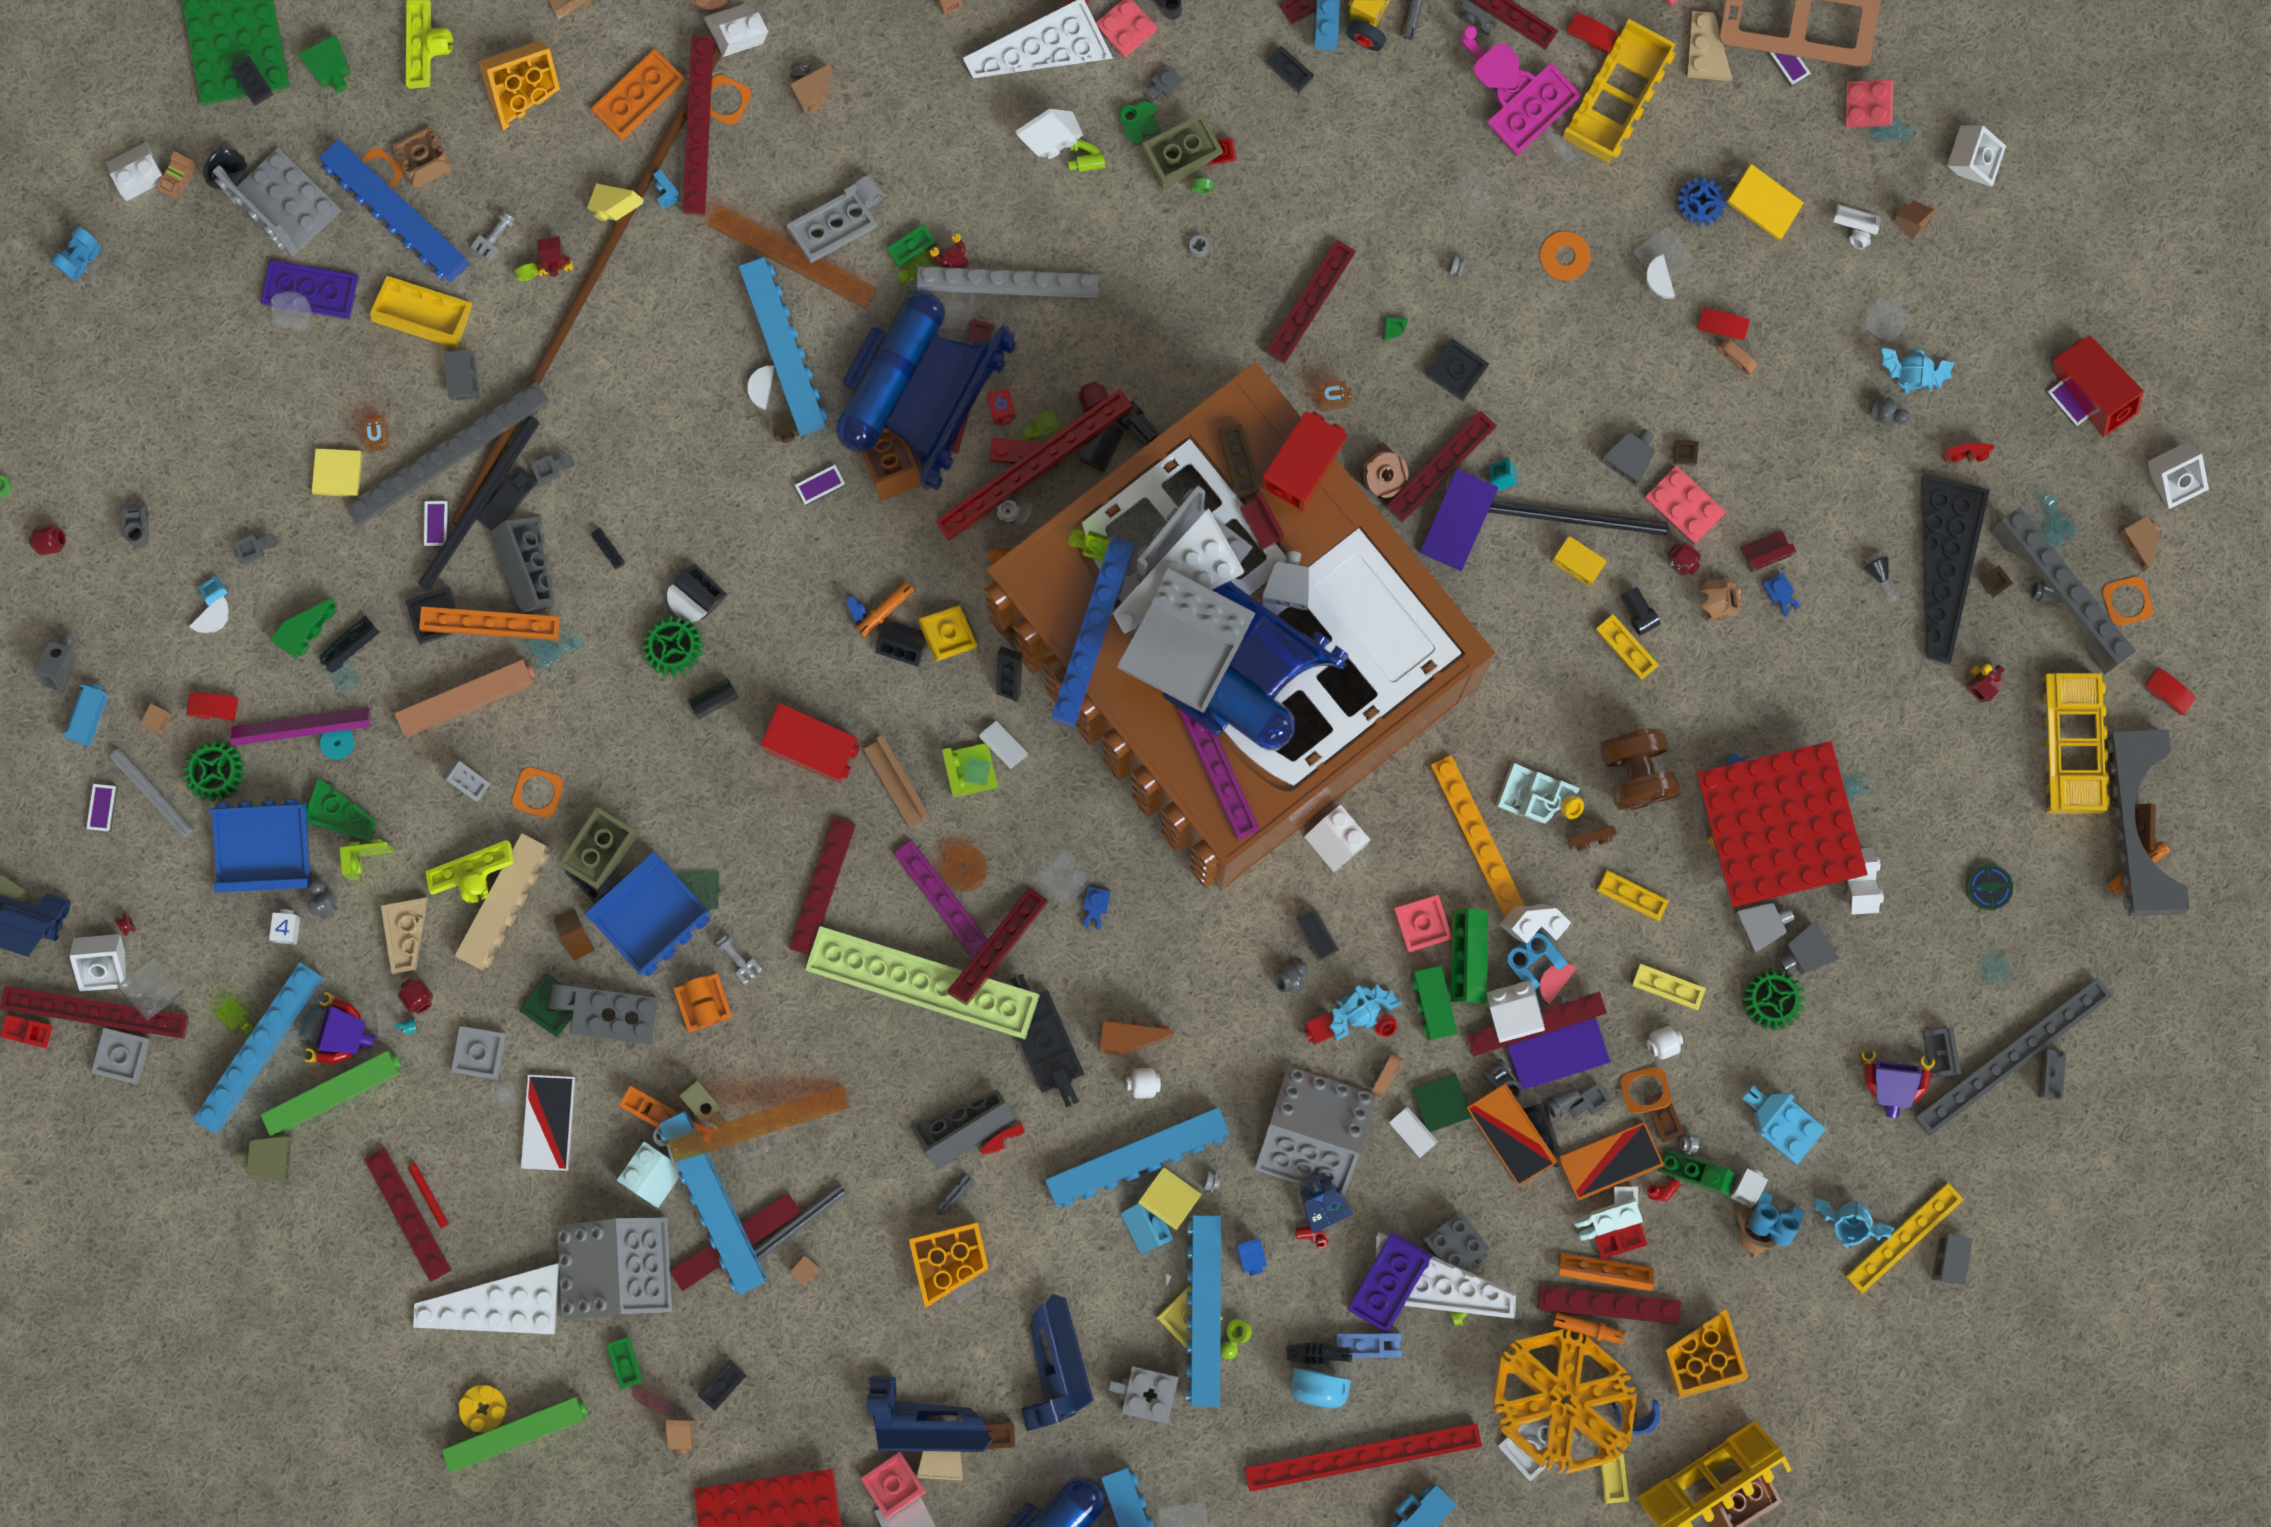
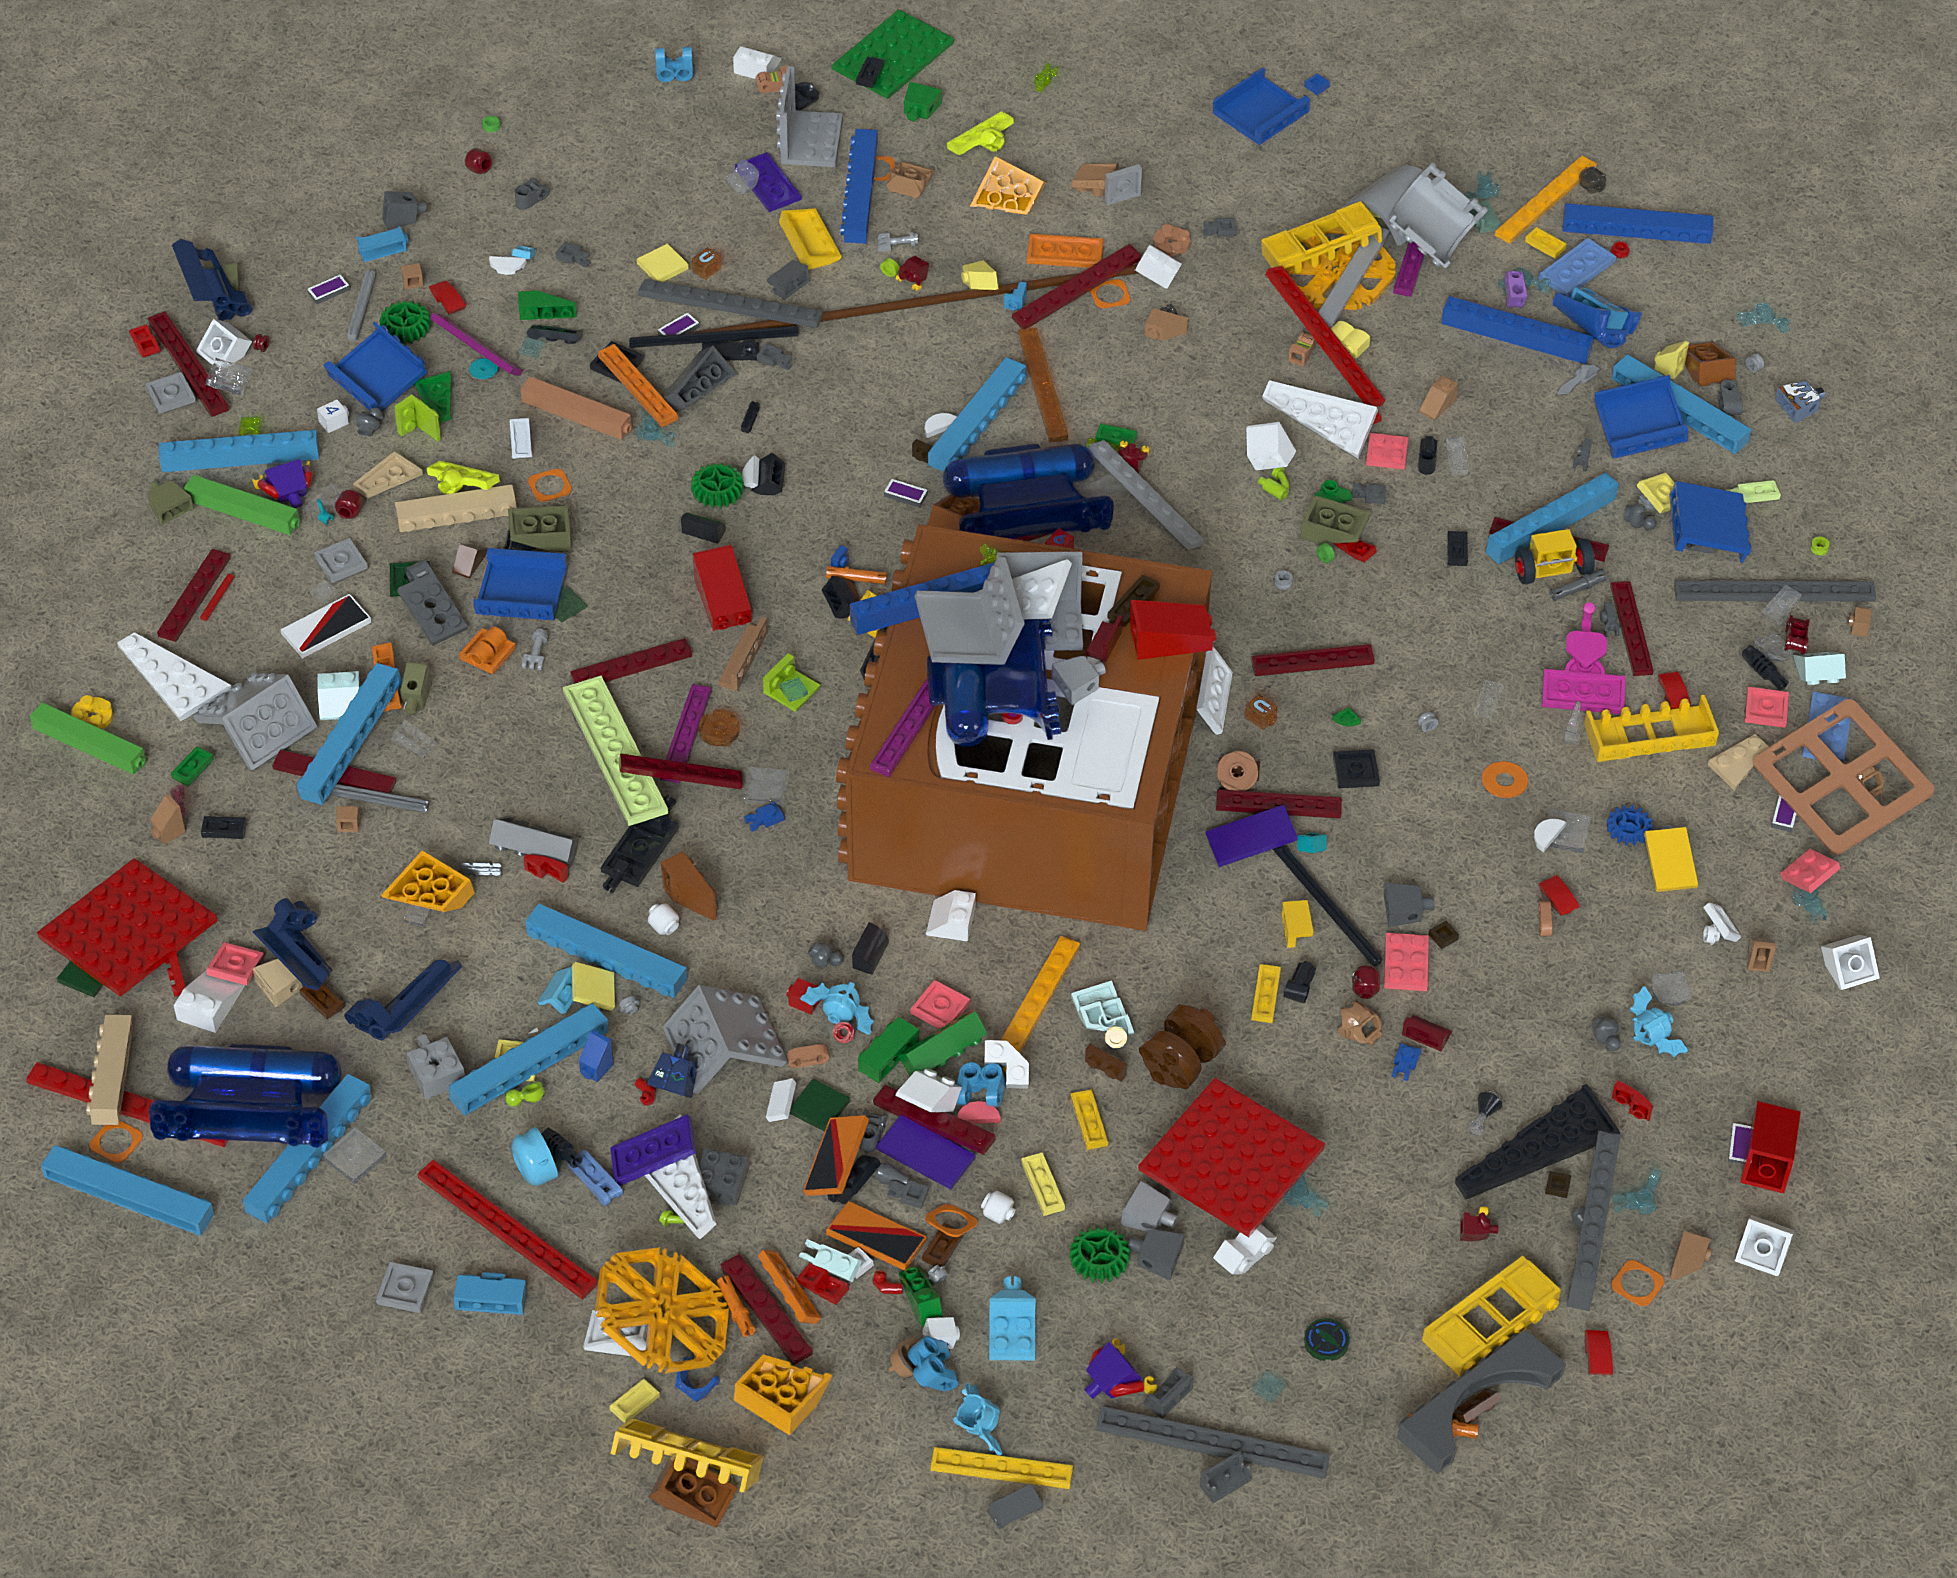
camera: 50 degrees right, 30 degrees down
(758, 1124) = (428, 720): clear orange plate -> none
(859, 196) = (1120, 390): light grey hinge -> none
(1003, 744) = (827, 693): white tile -> none

